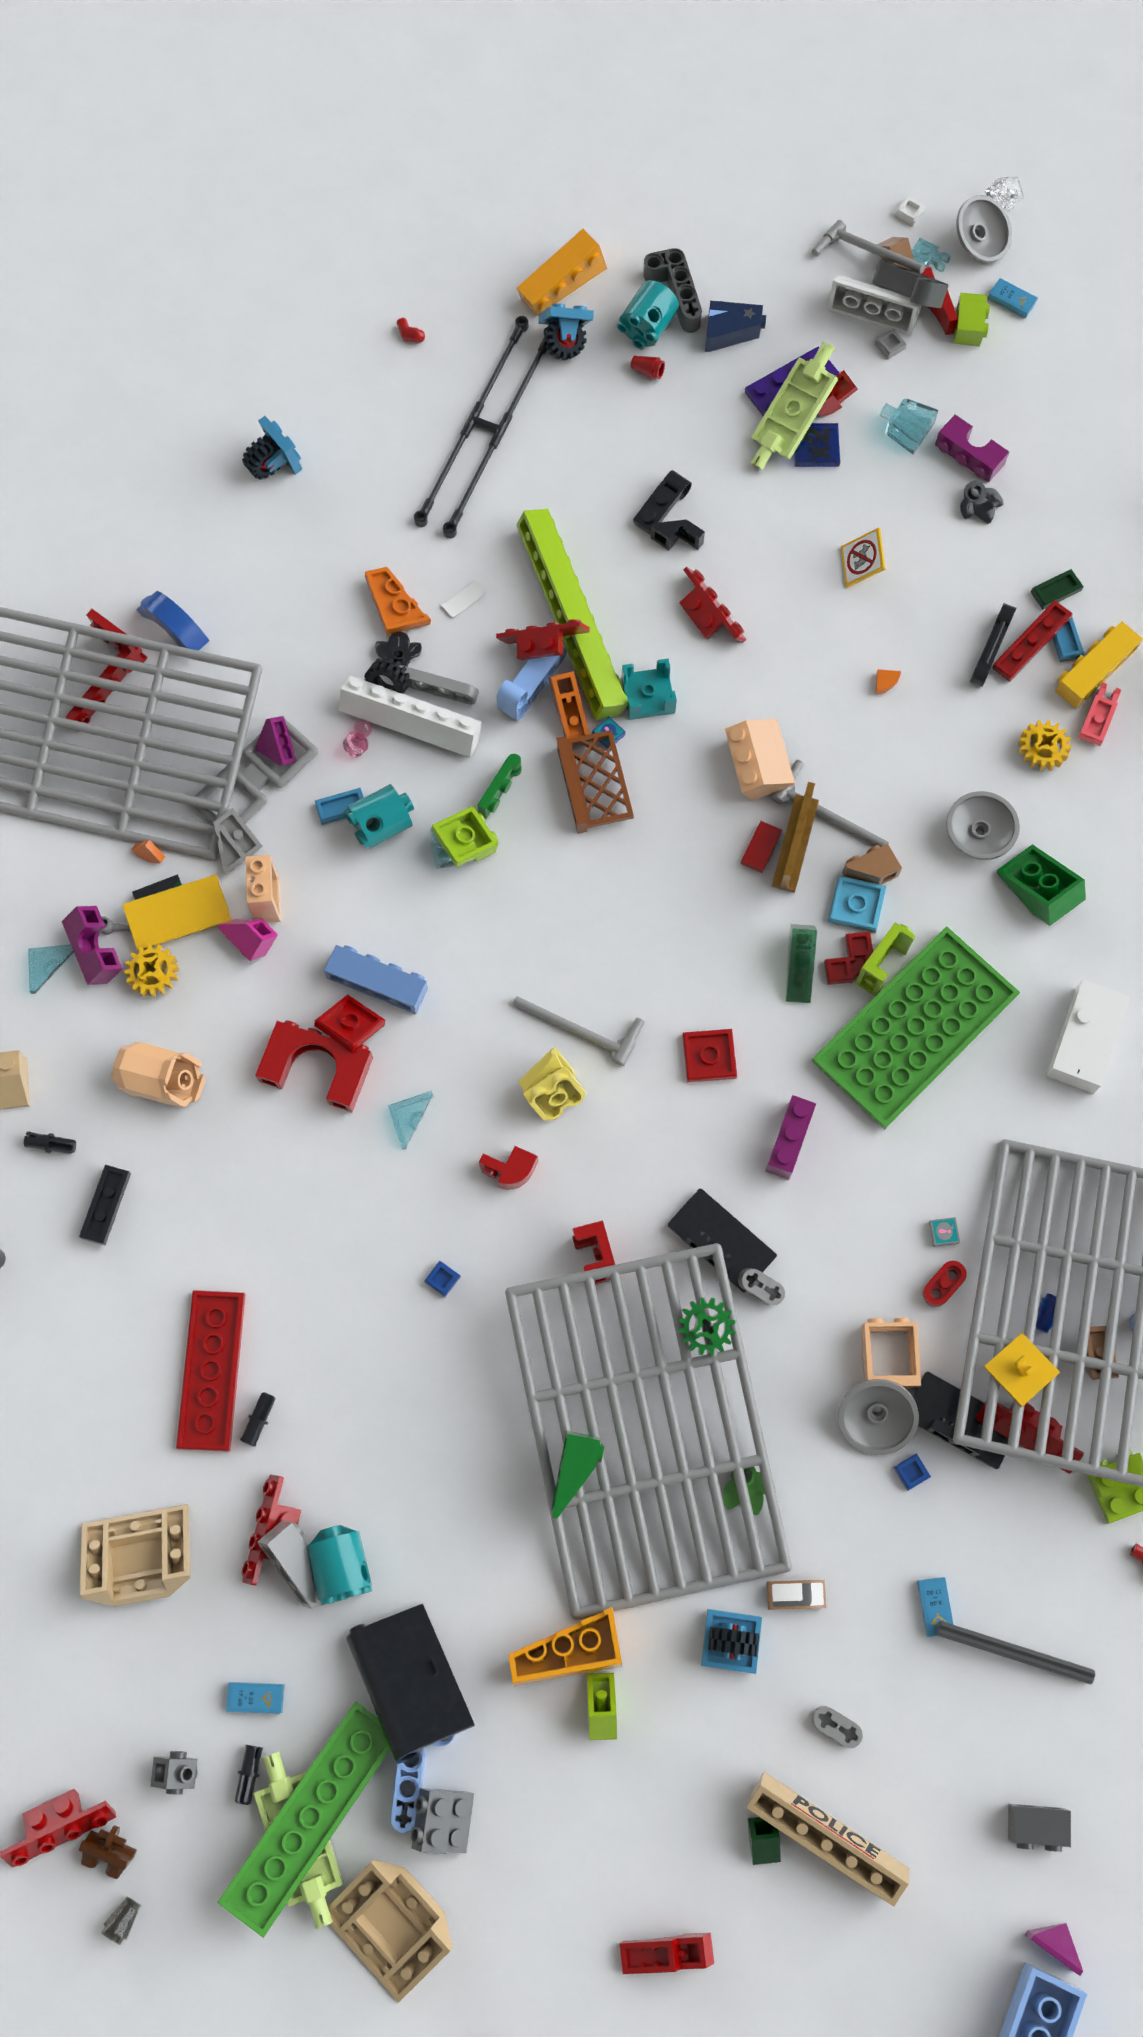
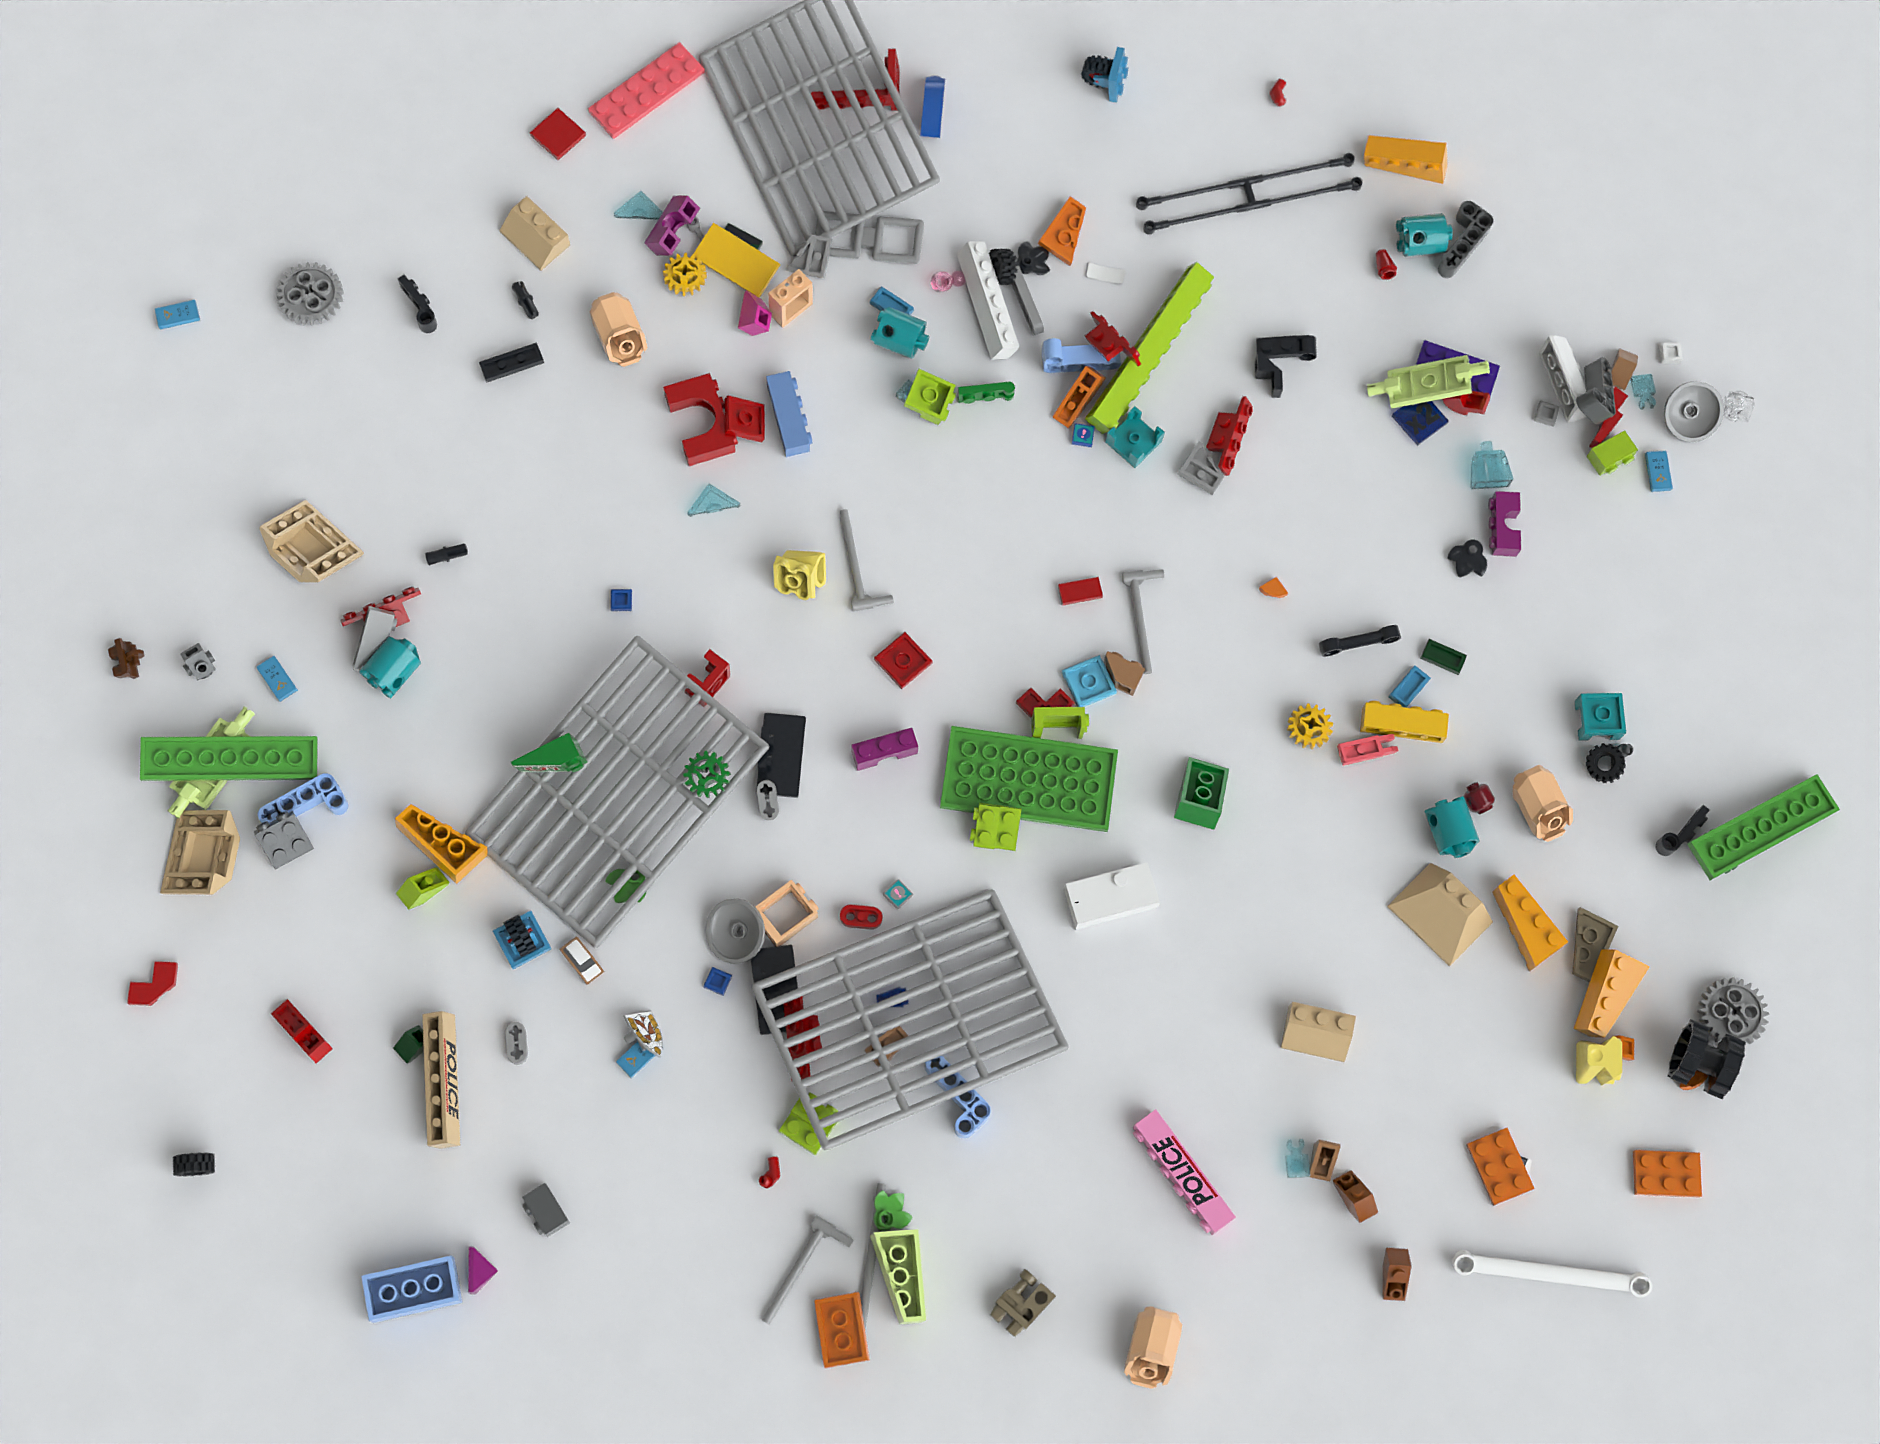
camera: 45 degrees right, 0 degrees up
(55, 1824) = (119, 618): red bracket -> none
(121, 1920) = (90, 697): clear smoke cone -> none
(148, 852) = (763, 212): orange tile -> none
(211, 1371) = (456, 504): red tile -> none
(248, 1774) = (228, 707): black axle -> none
(275, 742) = (901, 231): magenta slope -> none
(409, 1682) = (351, 758): black door -> none
(514, 1172) = (725, 592): red brick -> none
(565, 330) = (1359, 192): plate -> none
(575, 788) = (1023, 442): dark orange fence -> none
(725, 657) = (1201, 470): none -> light grey wing
(733, 324) = (1466, 296): dark blue slope -> none
(759, 757) = (1141, 542): light nougat slope -> none
(795, 840) = (1100, 607): pearl gold fence -> none
(800, 962) = (1015, 672): clear green slope -> none
(838, 232) = (1606, 315): light grey bar -> none
(863, 557) = (1353, 508): piece -> none
(921, 1583) = (646, 1031): none -> shield
(944, 1091) = (995, 826): none -> lime plate
(985, 813) = (1220, 714): light grey dish -> none
(1015, 1652) = (646, 1123): dark grey axle -> none
(1021, 1369) = (833, 997): yellow piece -> none
(1032, 640) = (1386, 665): red tile -> none

